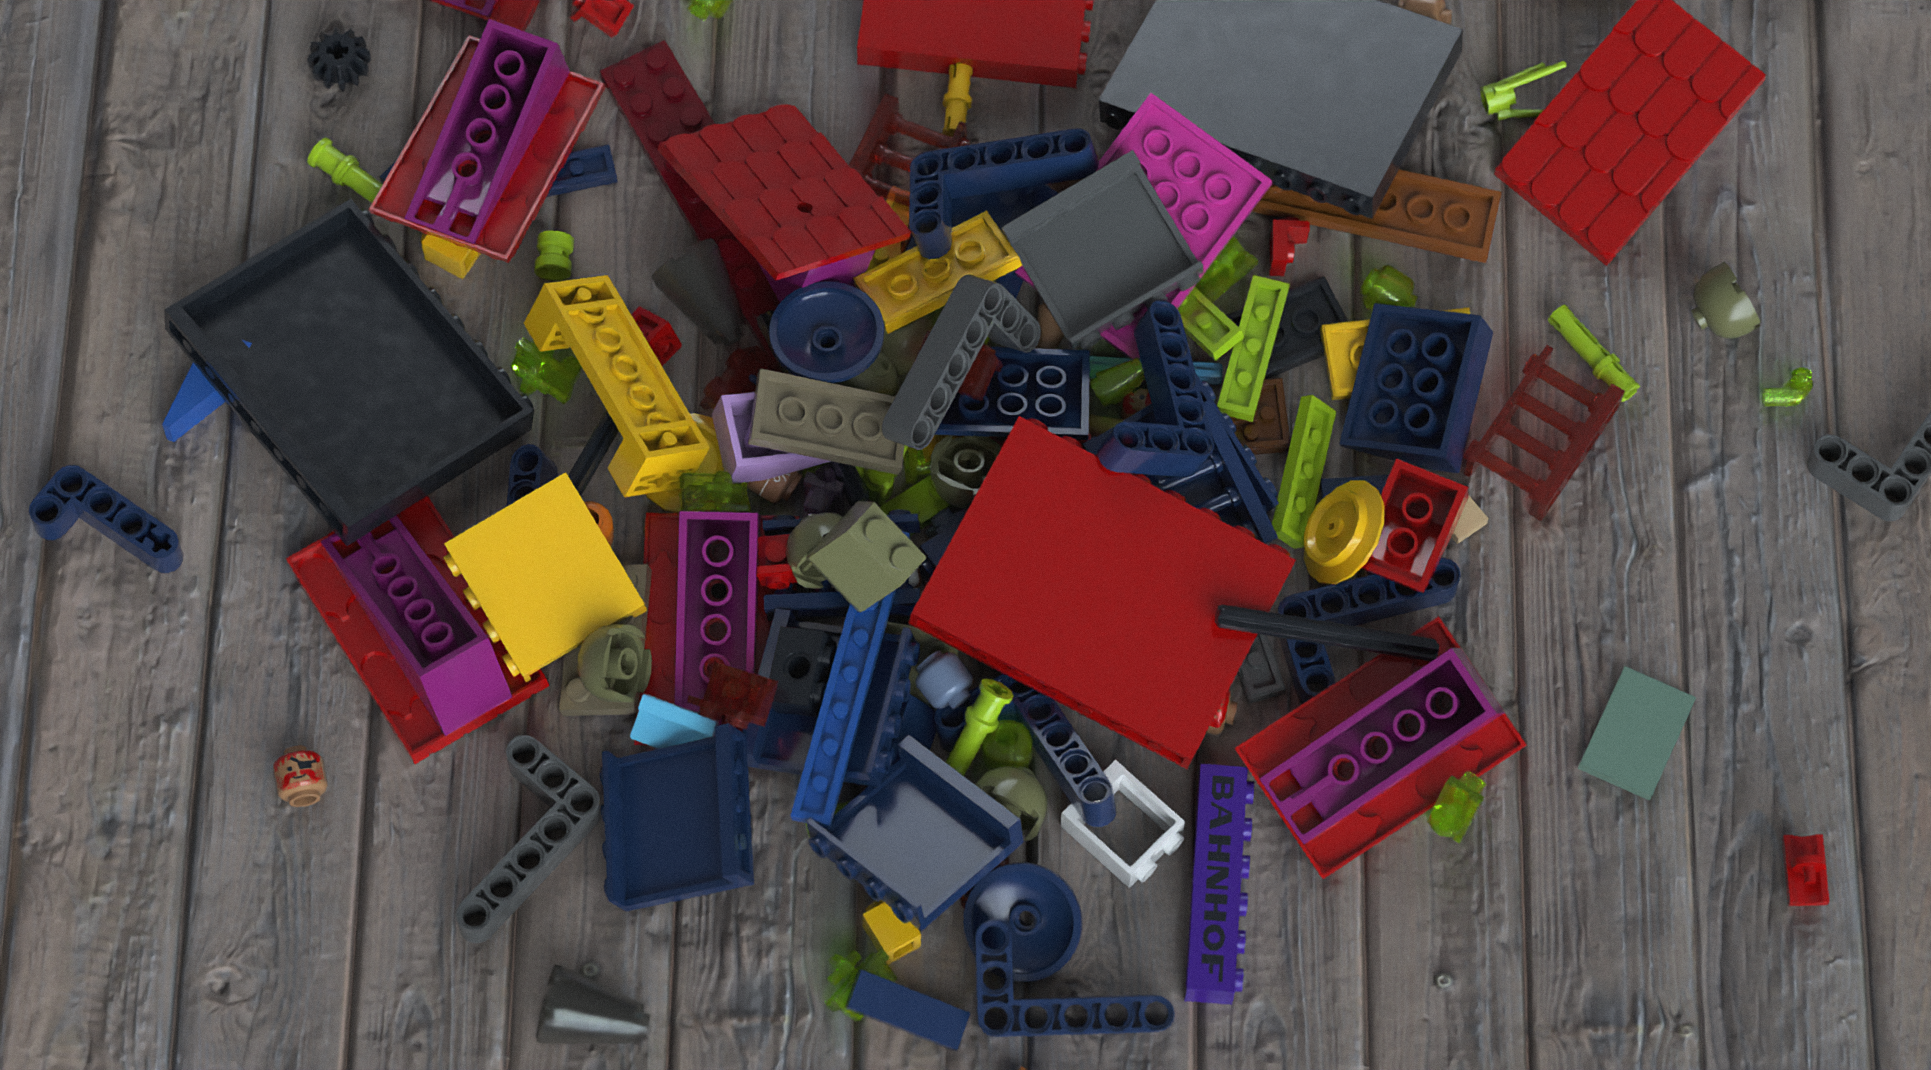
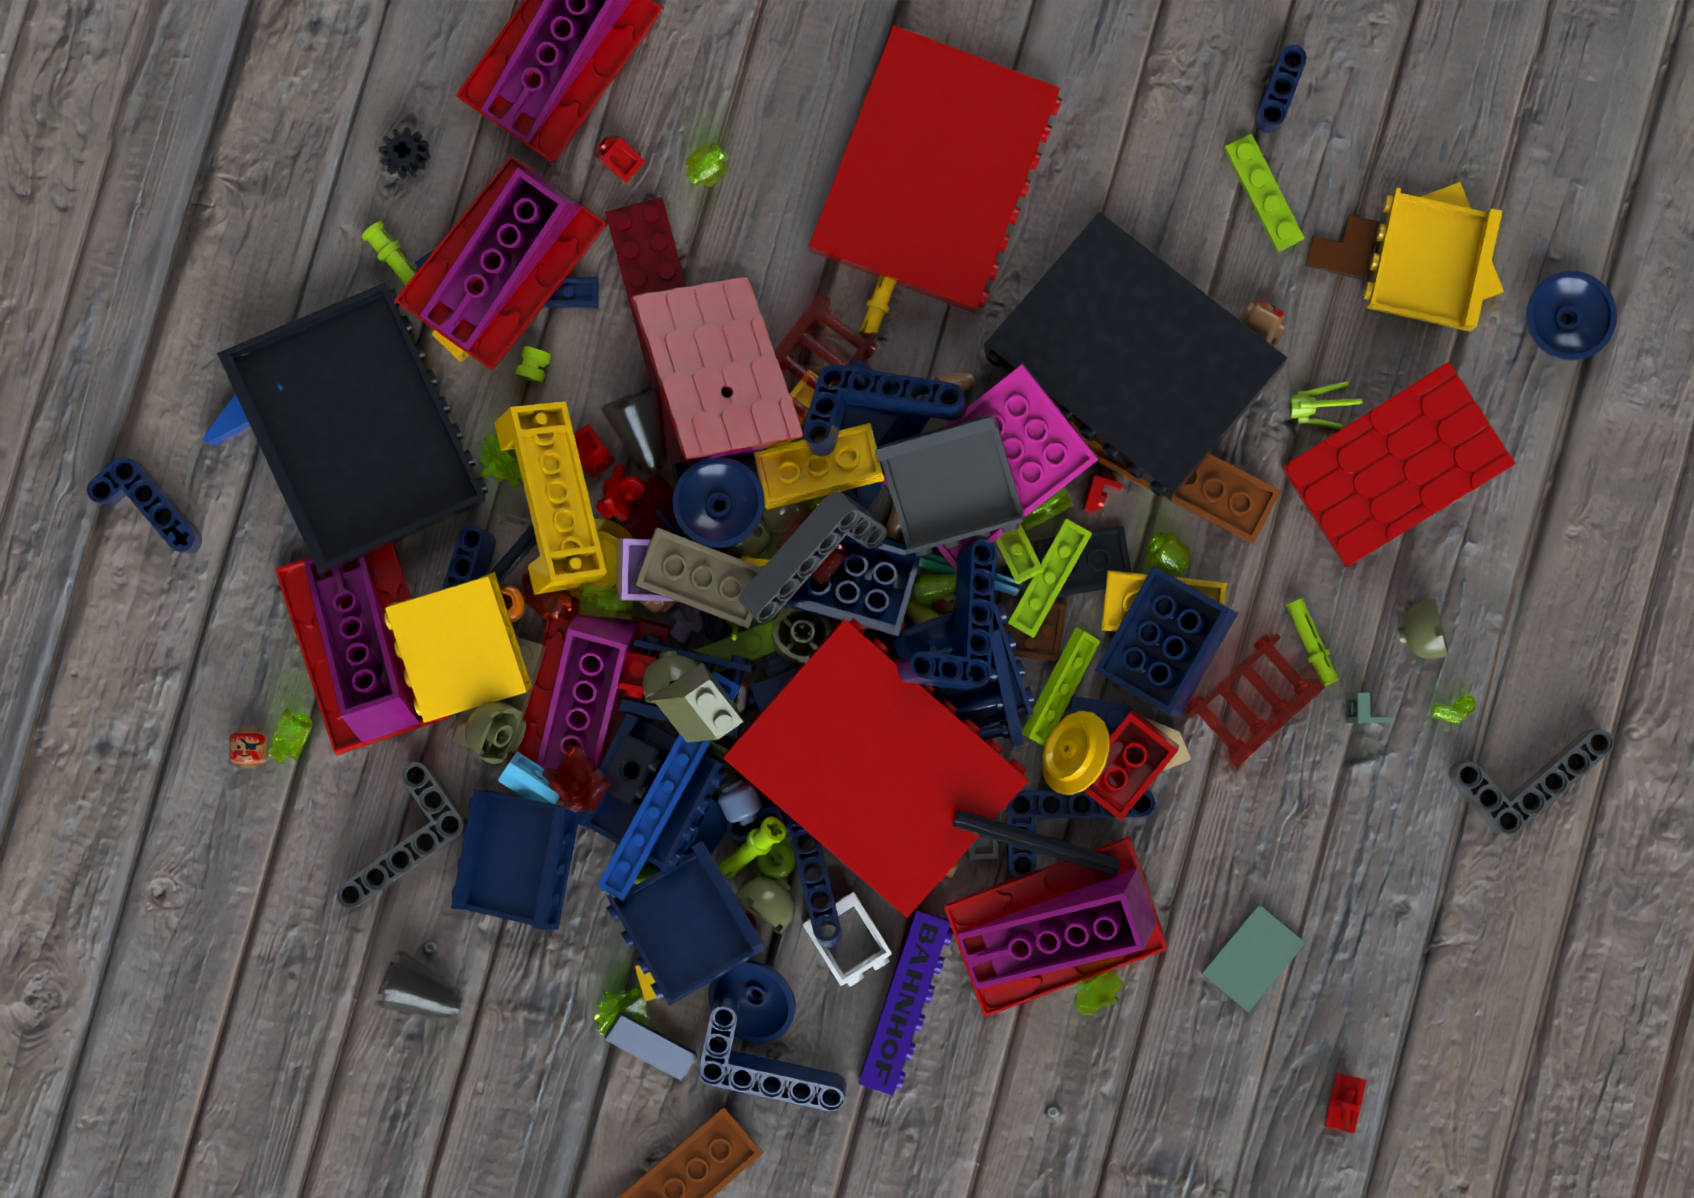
camera: 15 degrees right, 20 degrees up
(352, 744) = (290, 736): none -> clear neon green hips
(640, 514) = (549, 606): none -> clear red arm
(701, 368) = (620, 494): none -> red hips
(1677, 412) = (1359, 710): none -> sand green panel

